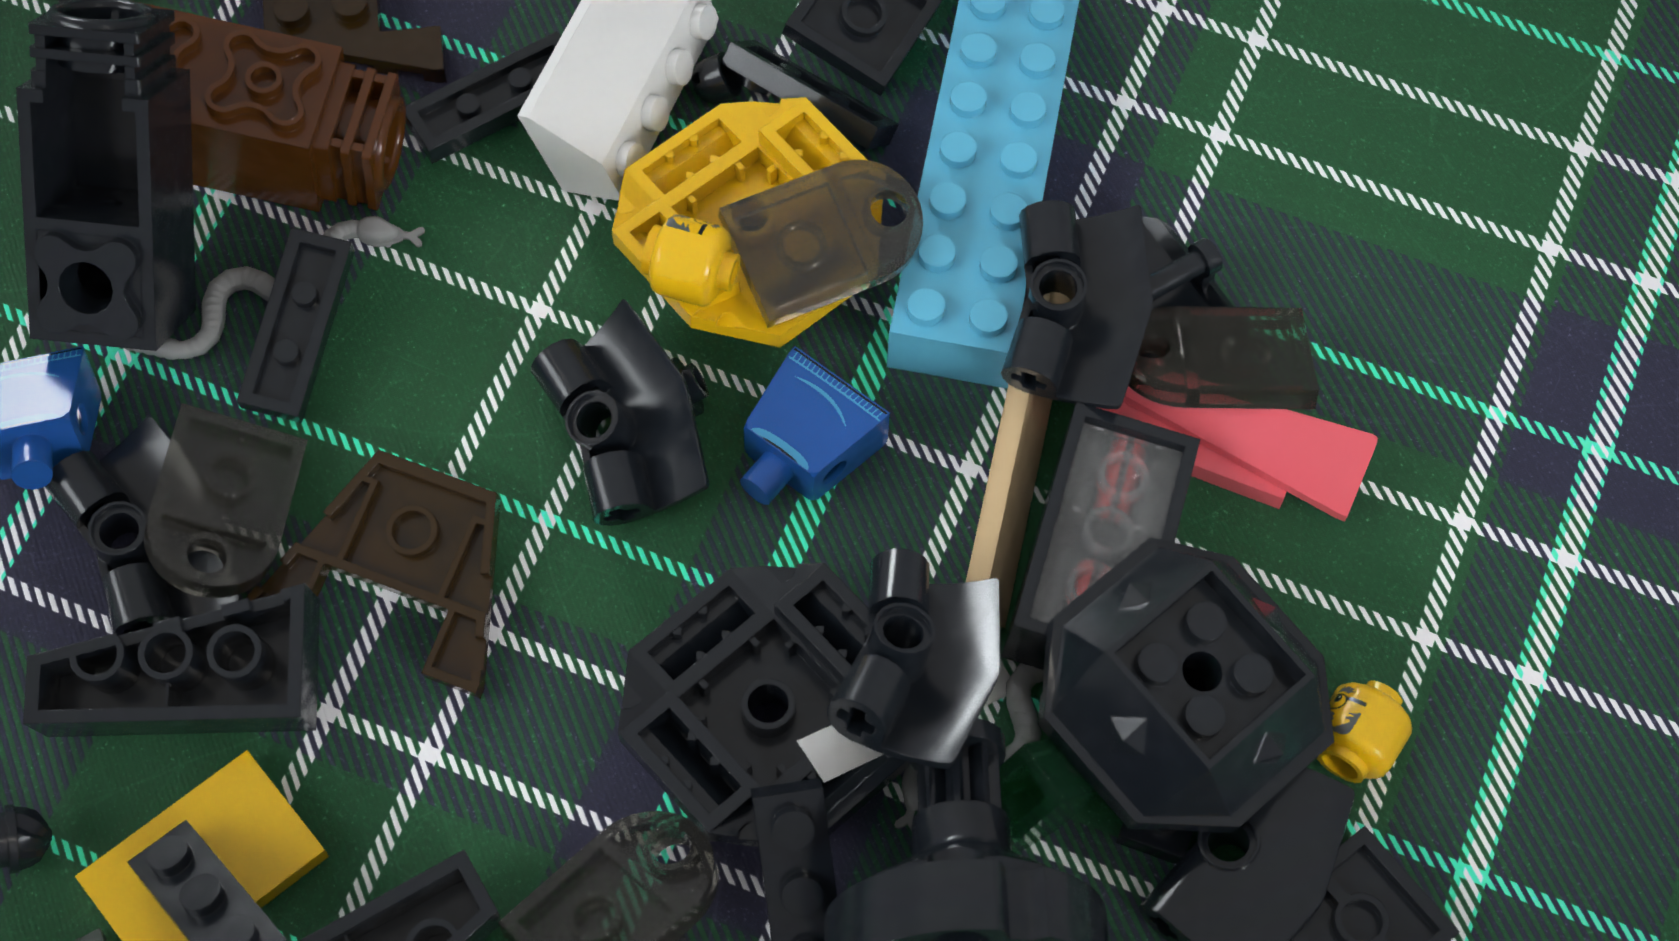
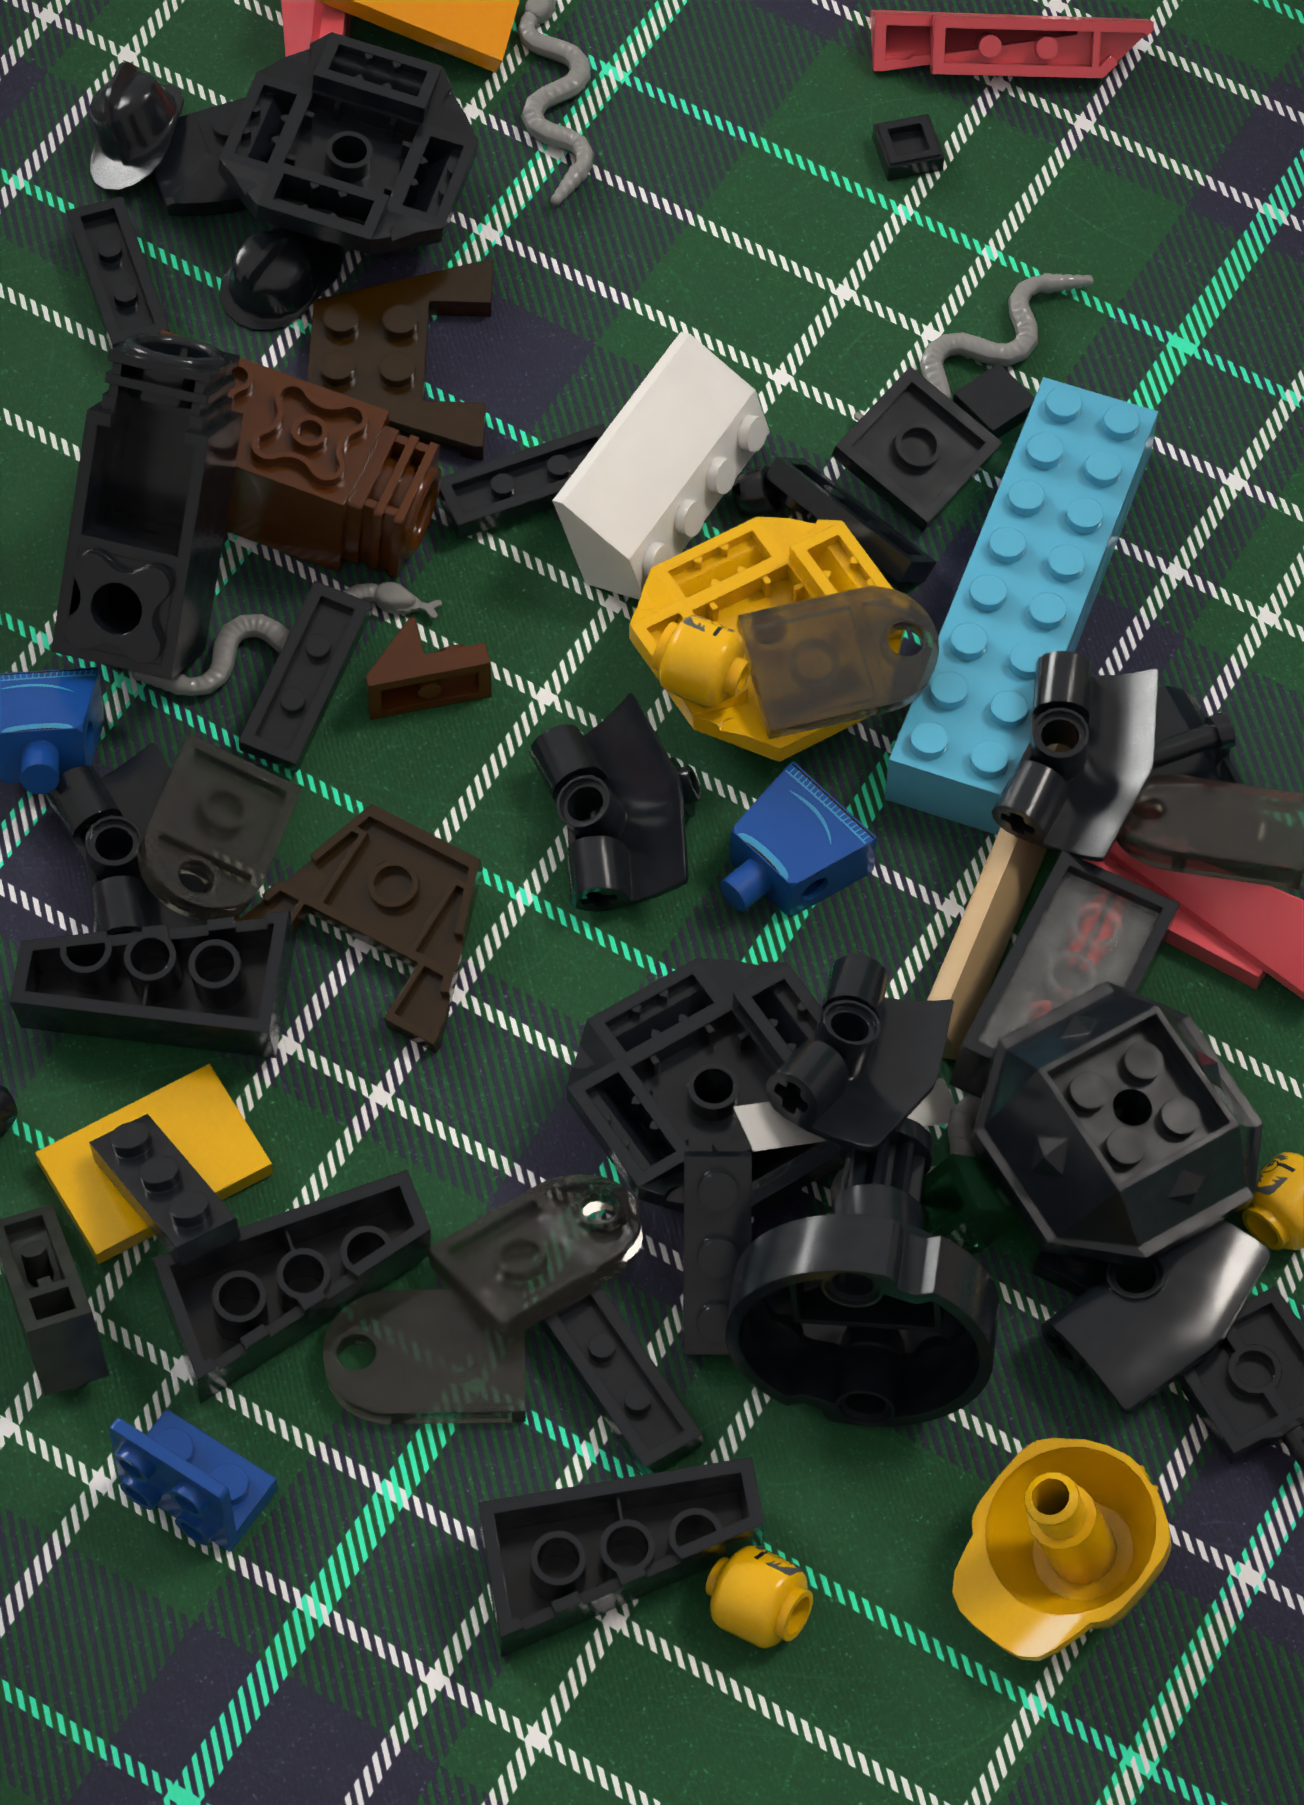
camera: 10 degrees right, 5 degrees down
(405, 314) = (414, 681): none -> reddish brown slope

